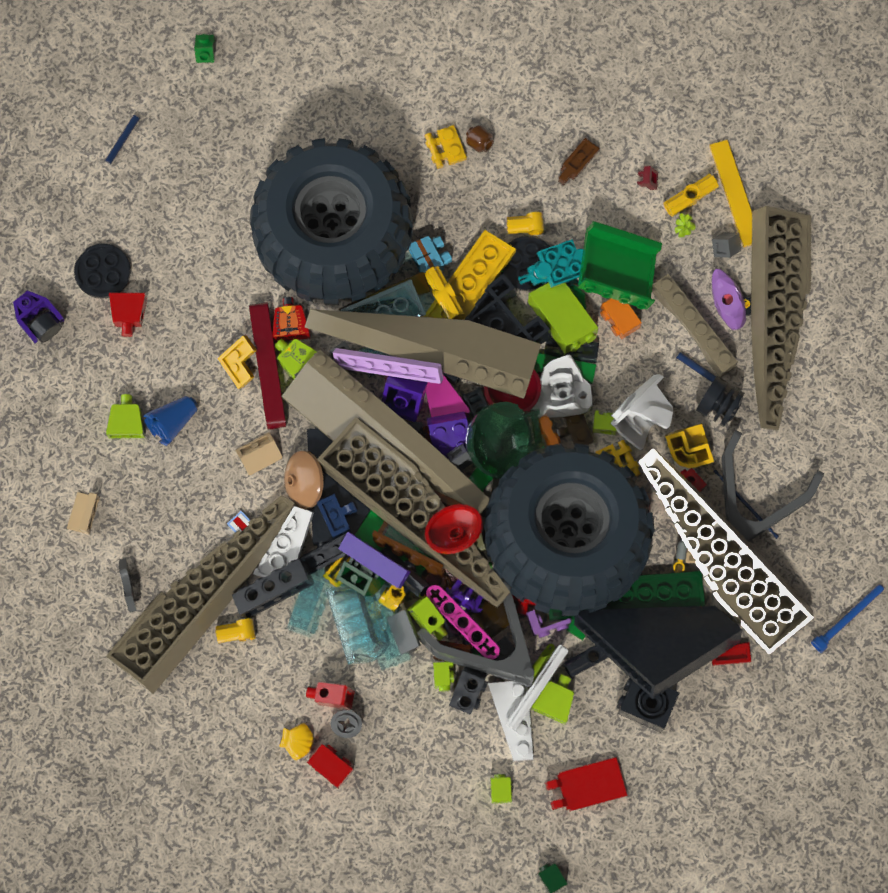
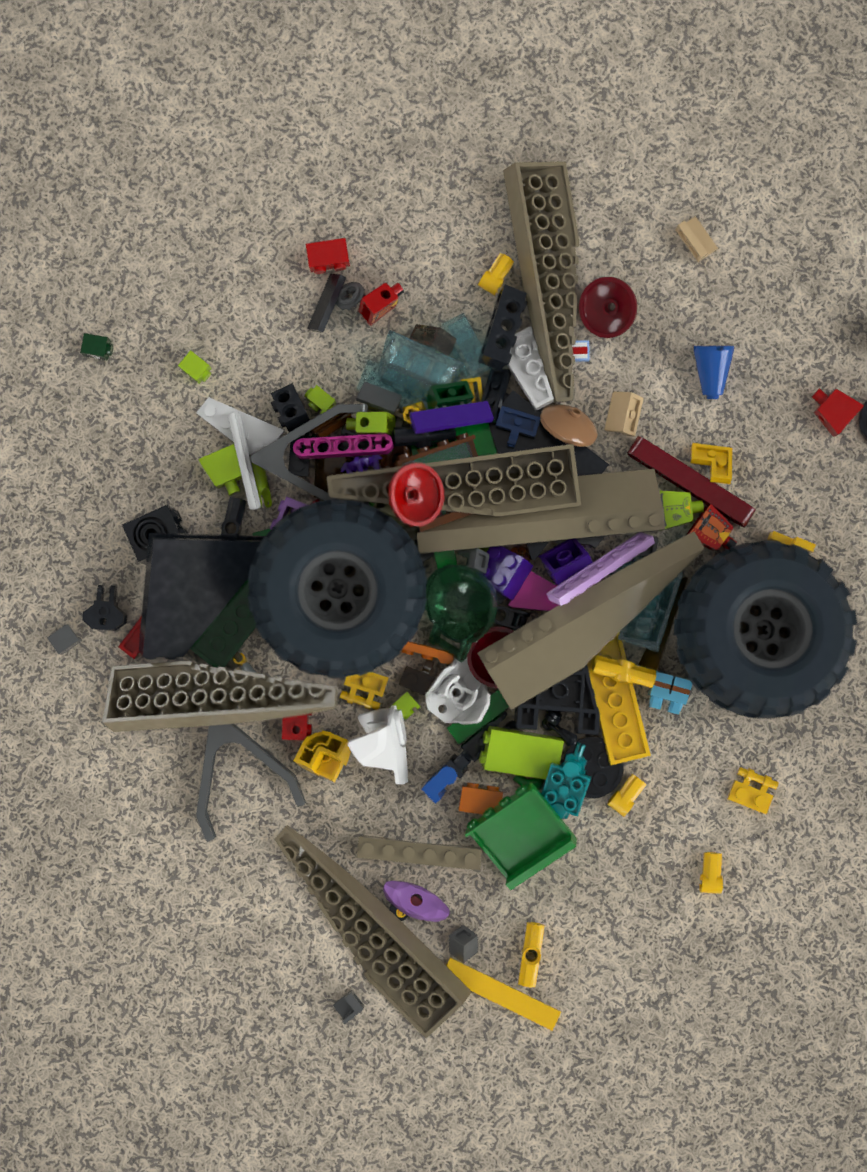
camera: 135 degrees right, 10 degrees up
(125, 420) = (744, 332): lime torso -> none
(127, 585) = (598, 217): dark grey tile -> none
(202, 525) = (596, 311): none -> dark red dish
(251, 256) = (775, 536): none -> yellow plate
(297, 741) = (370, 249): yellow animal -> none
(327, 630) = (434, 338): none -> clear smoke brick
(366, 736) = (326, 303): none -> black tile
(479, 138) = (734, 824): reddish brown head -> none
(522, 296) = (554, 719): none -> black piece
(529, 124) = (711, 875): none -> yellow piece
(578, 161) = (643, 889): reddish brown hinge -> none
(588, 785) = (140, 436): red tile -> none
(625, 350) = (447, 775): none -> blue hips
(650, 178) = (576, 934): dark red tile -> none
(684, 225) = (510, 925): lime plant -> none
(696, 367) = (378, 825): dark blue bar -> none
(720, 401) = (337, 813): black wheel -> none
(735, 692) = (106, 610): none -> black hinge
(747, 505) = (239, 759): dark blue piece -> none
(782, 703) = (64, 639): none -> dark grey panel
(820, 643) = (82, 715): blue piece -> none
(840, 282) = (349, 1006): none -> dark grey panel

